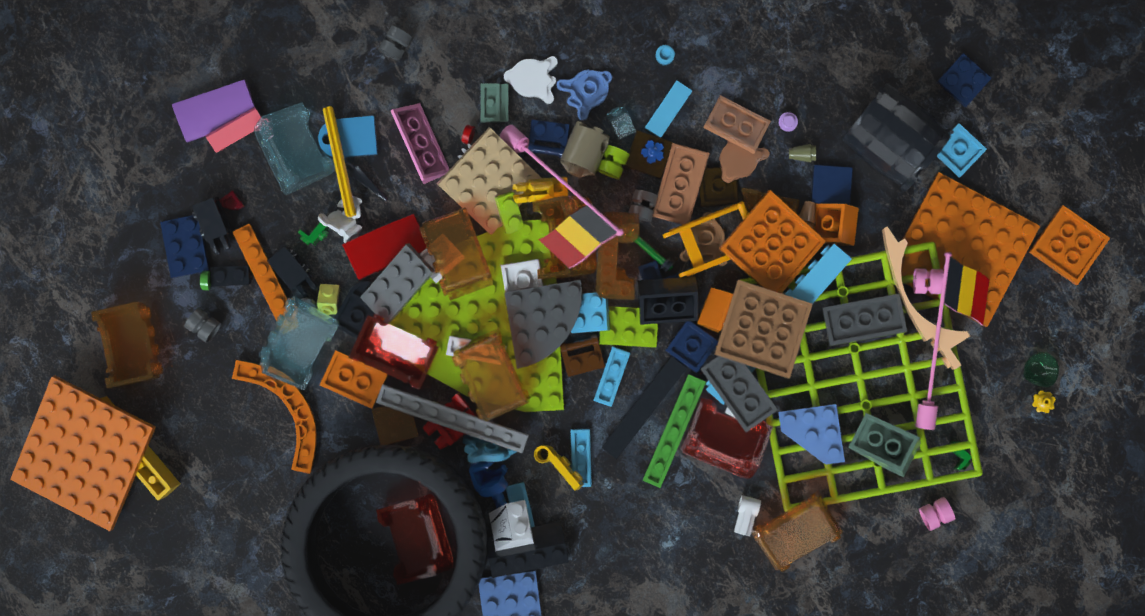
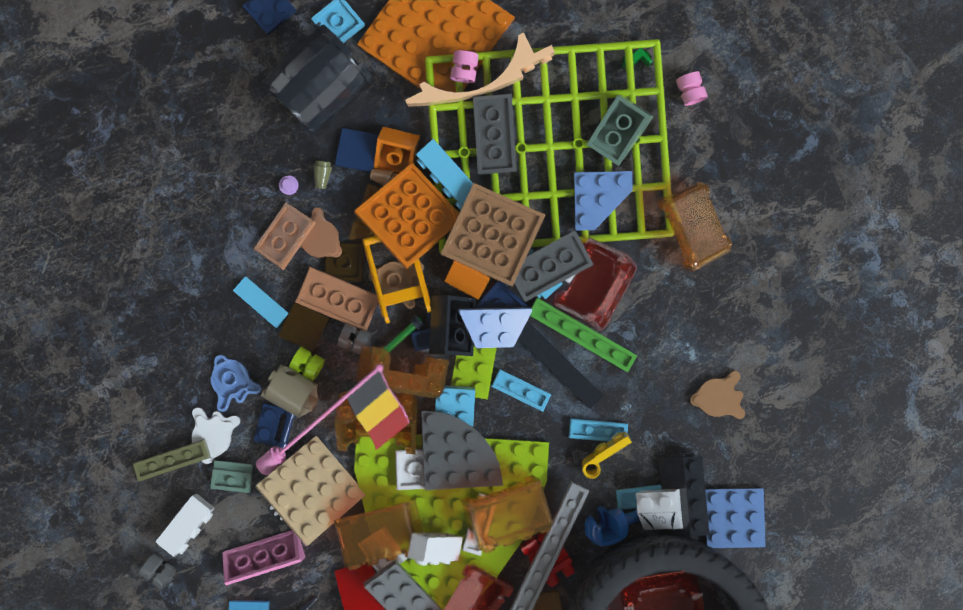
camera: 80 degrees left, 0 degrees up
(442, 64) = (185, 525): none -> white brick
(450, 308) = (434, 548): none -> white brick
(468, 134) = (260, 506): red tile -> none
(482, 450) = (582, 529): medium azure tile -> none
(503, 42) = (171, 460): none -> olive tile
(509, 213) = (345, 474): lime plate -> none
(539, 189) = (325, 441): yellow plate -> none
(582, 362) = (503, 417): reddish brown plate -> none
(621, 122) = (268, 351): clear light blue bracket -> none
(628, 575) = (719, 398): none -> medium nougat tile
(652, 152) = (301, 323): blue plant -> none
(665, 54) = (205, 299): medium azure tile -> none
(673, 342) = (494, 325): none -> wing
(748, 510) = (668, 272): white piece -> none
(965, 293) = (480, 34): flag -> none

